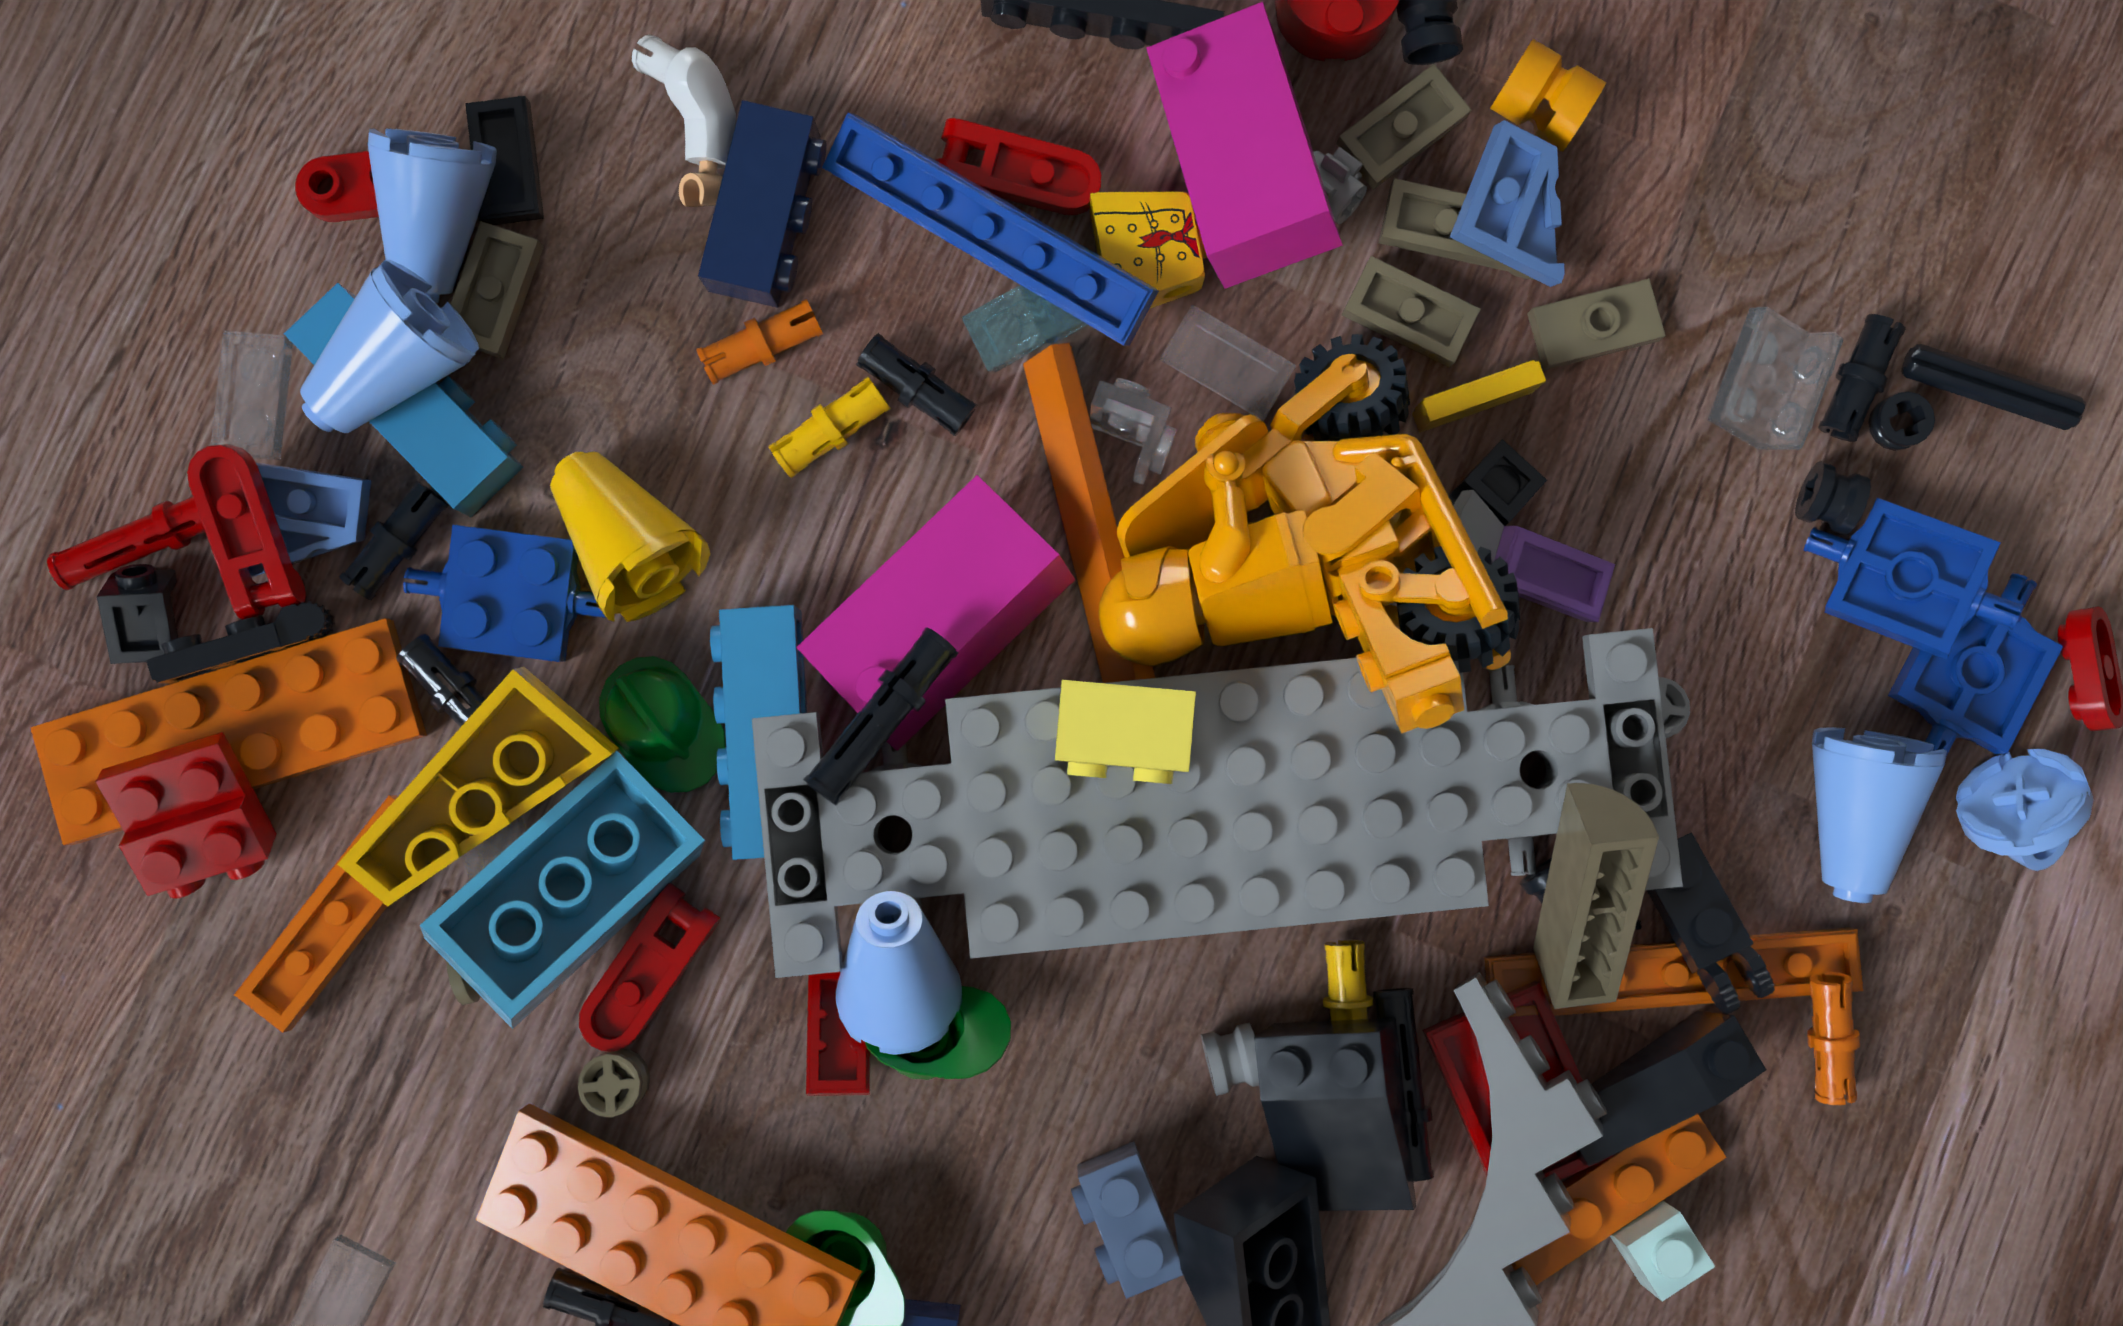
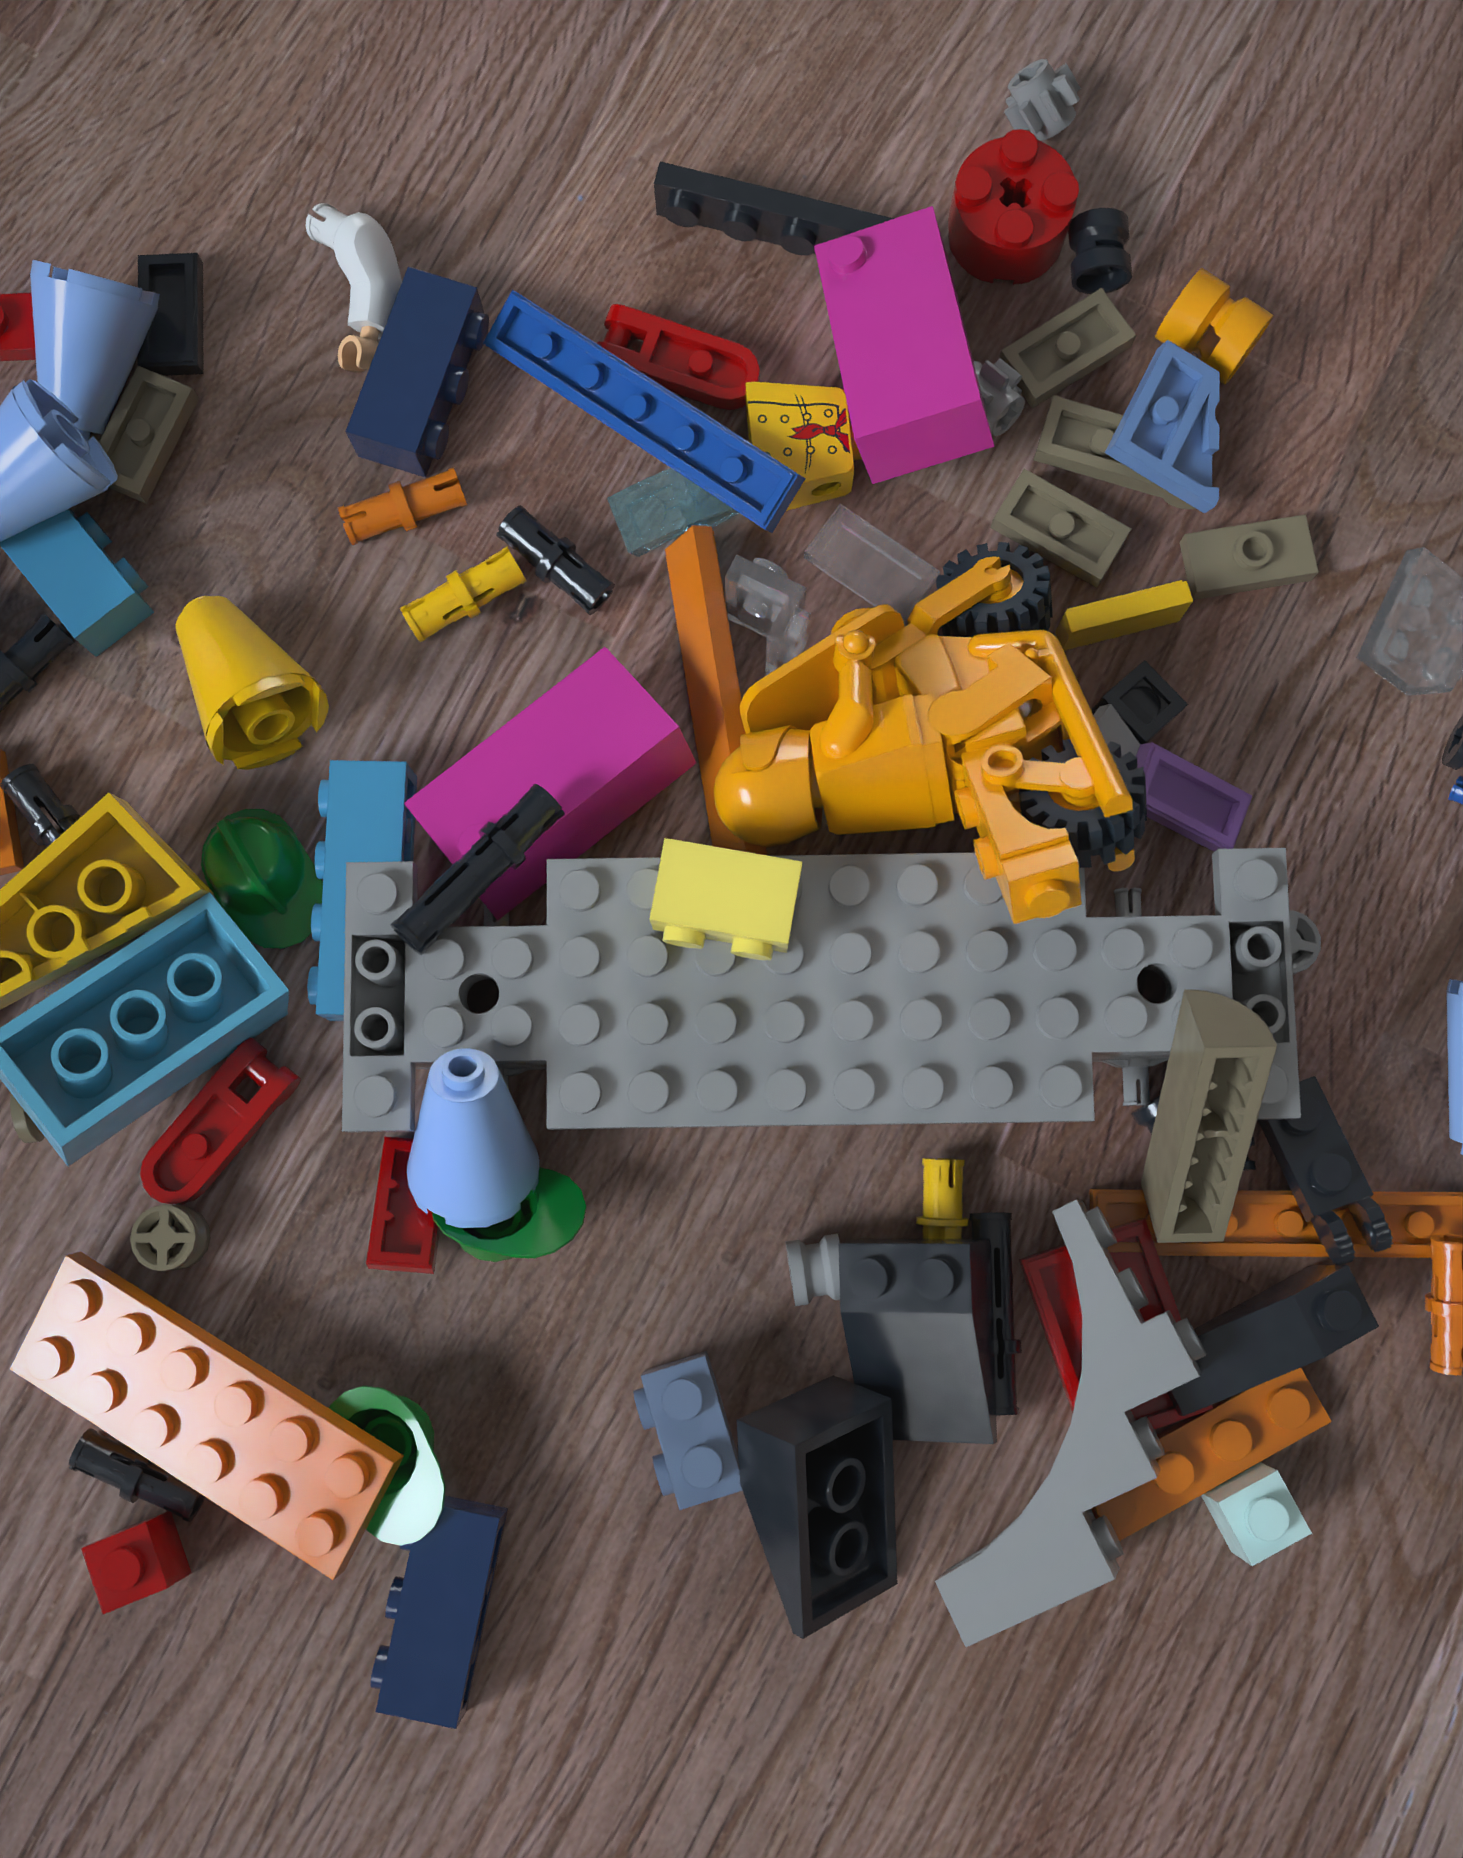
camera: 10 degrees right, 5 degrees down
(507, 593) = (121, 732): blue plate -> none

